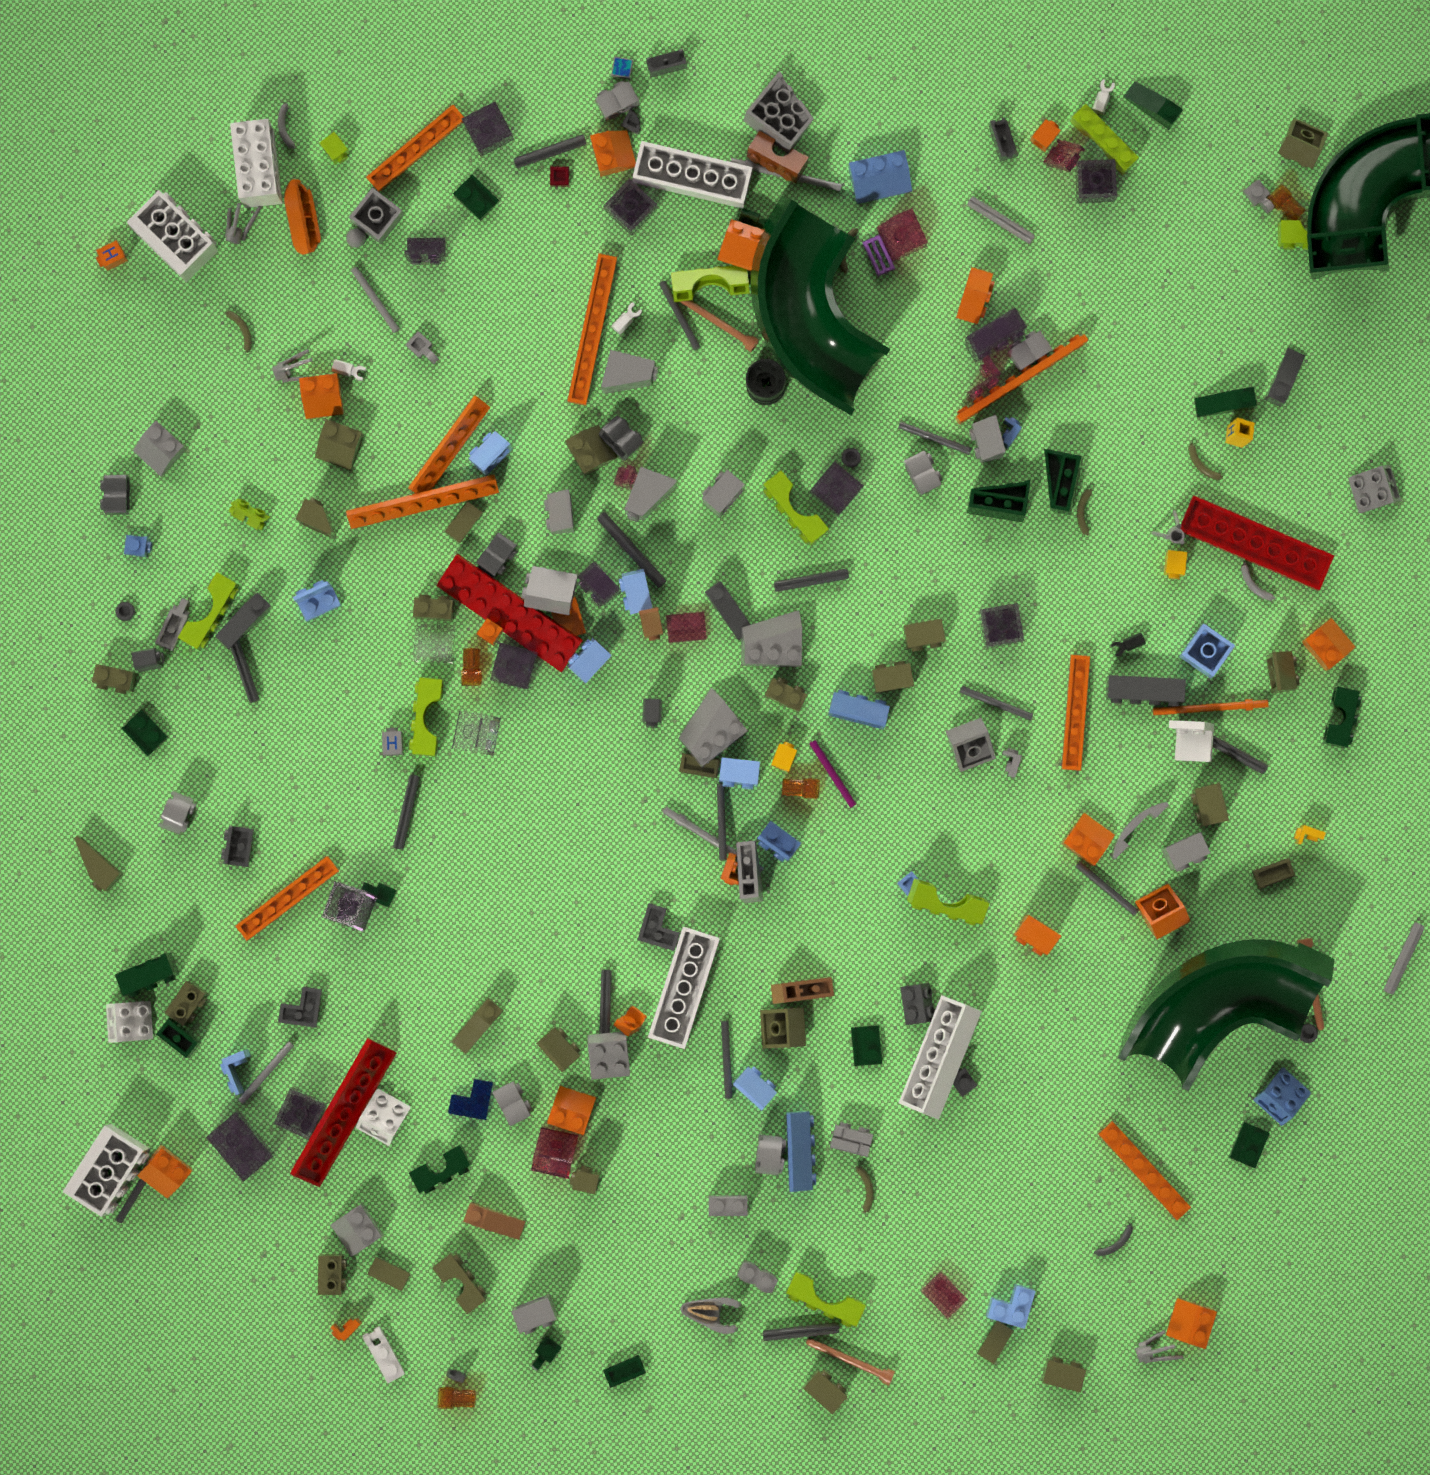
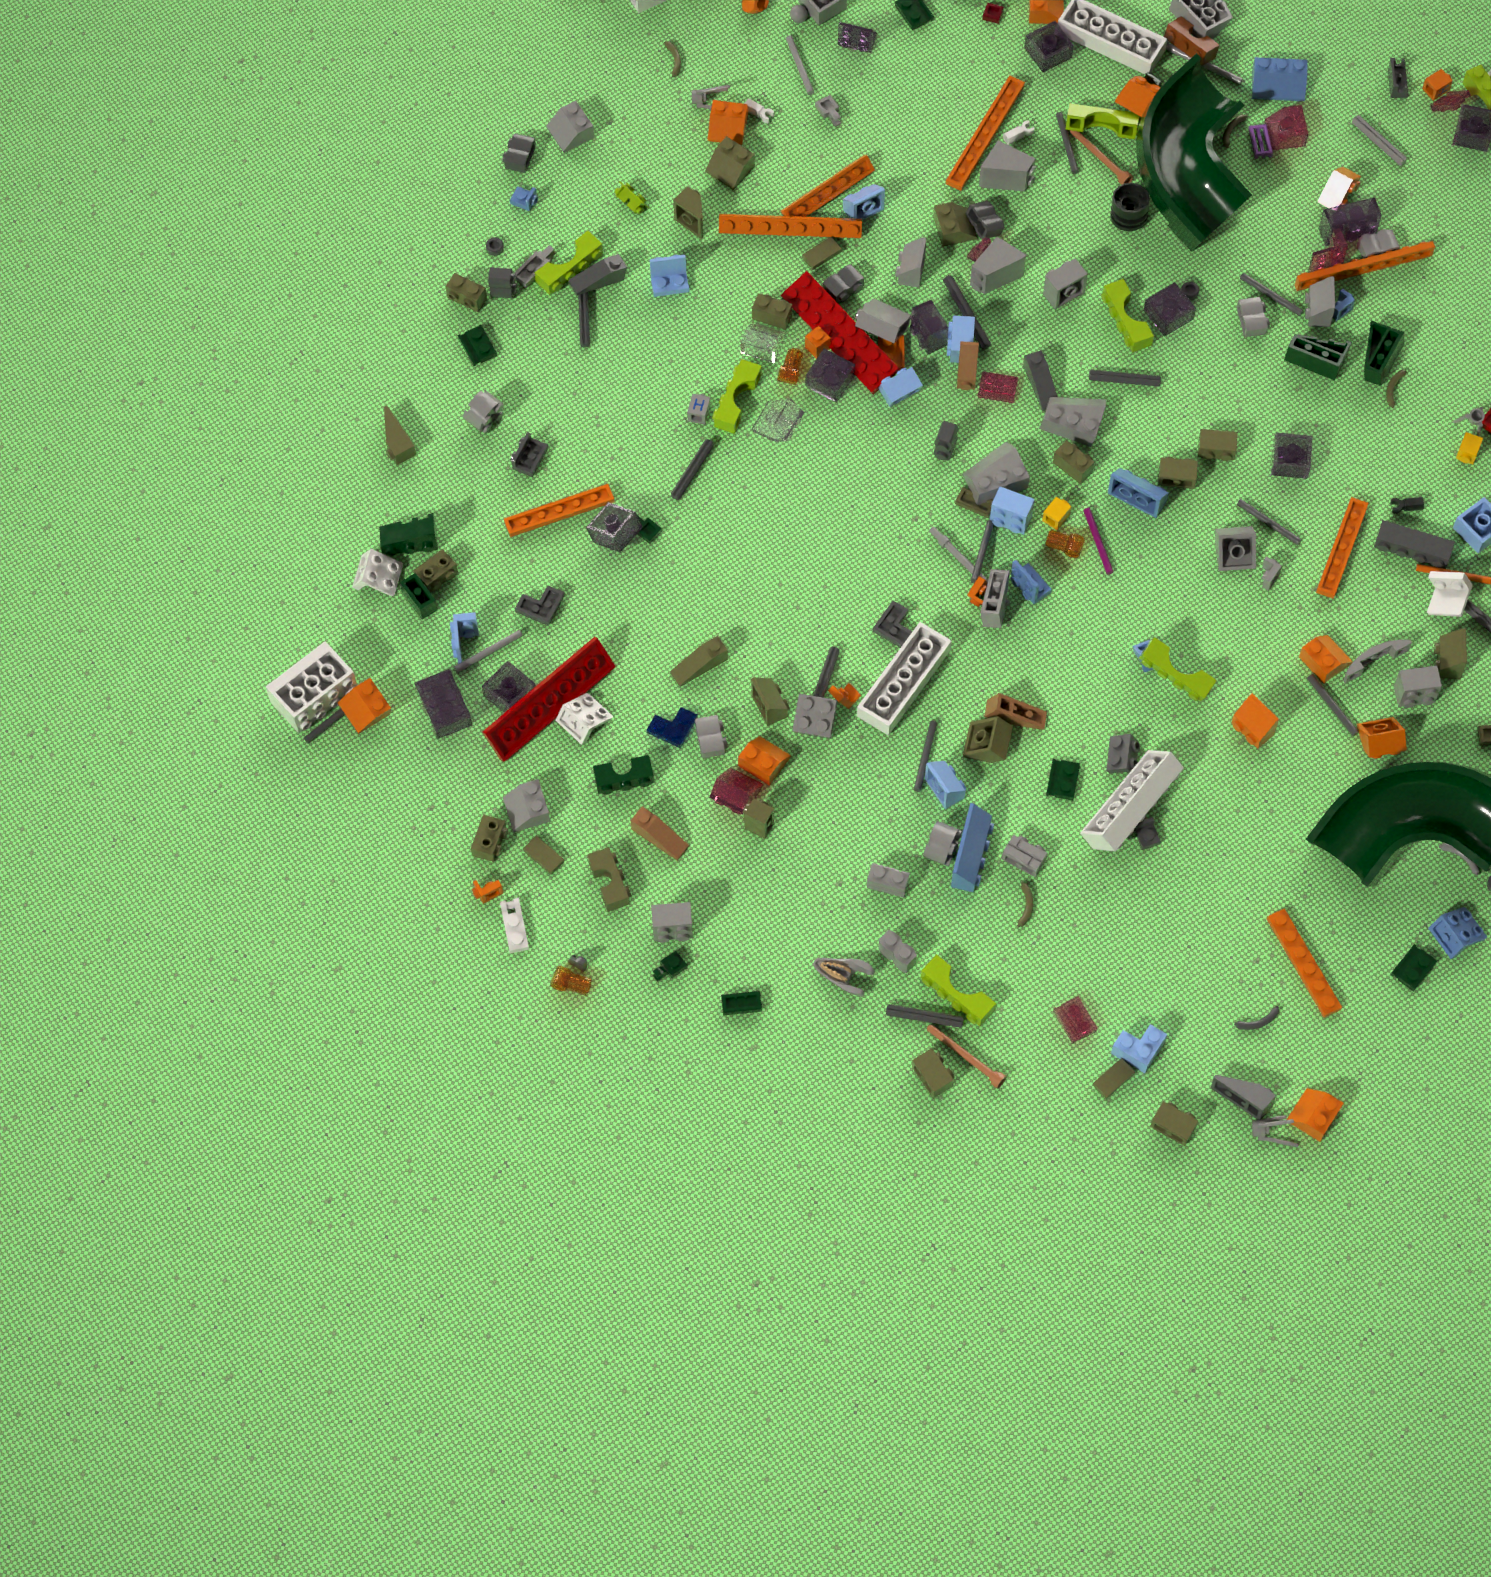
camera: 15 degrees right, 20 degrees down
(1127, 1326) = (1246, 1095): none -> slope

